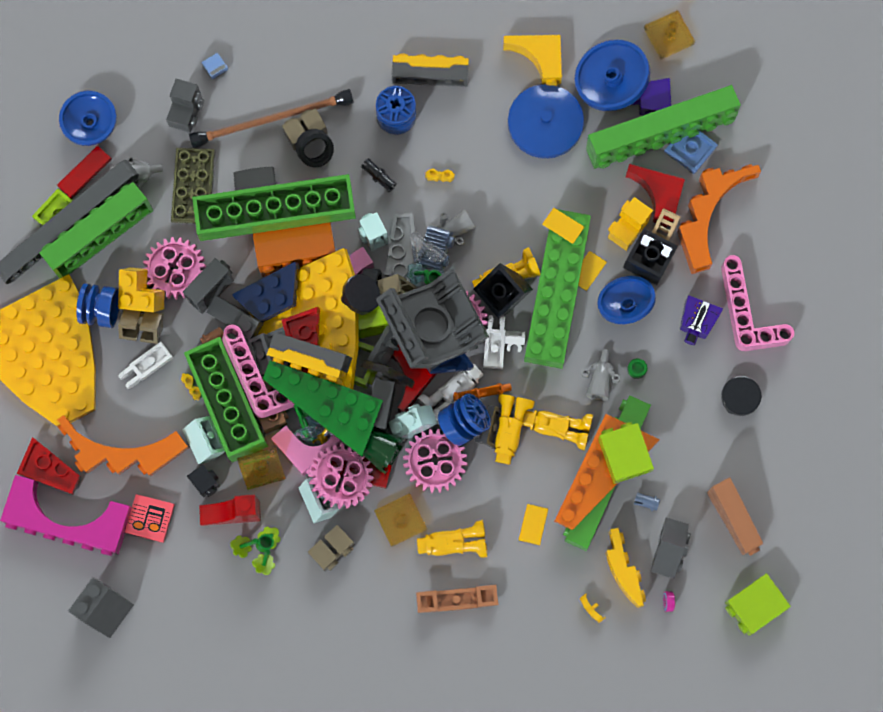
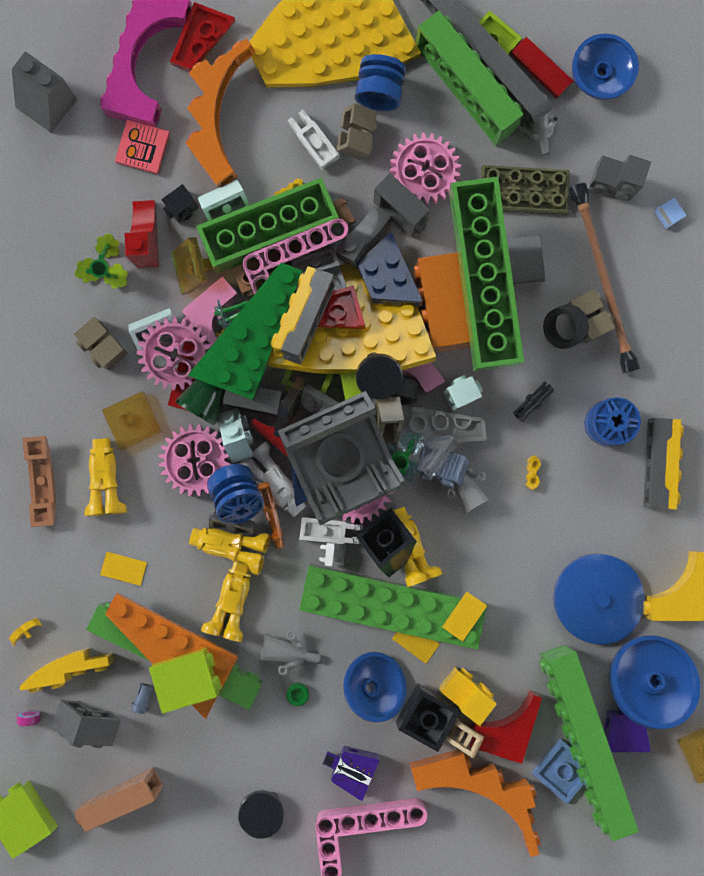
camera: 90 degrees right, 10 degrees up
(135, 294) = (391, 124): yellow brick -> none

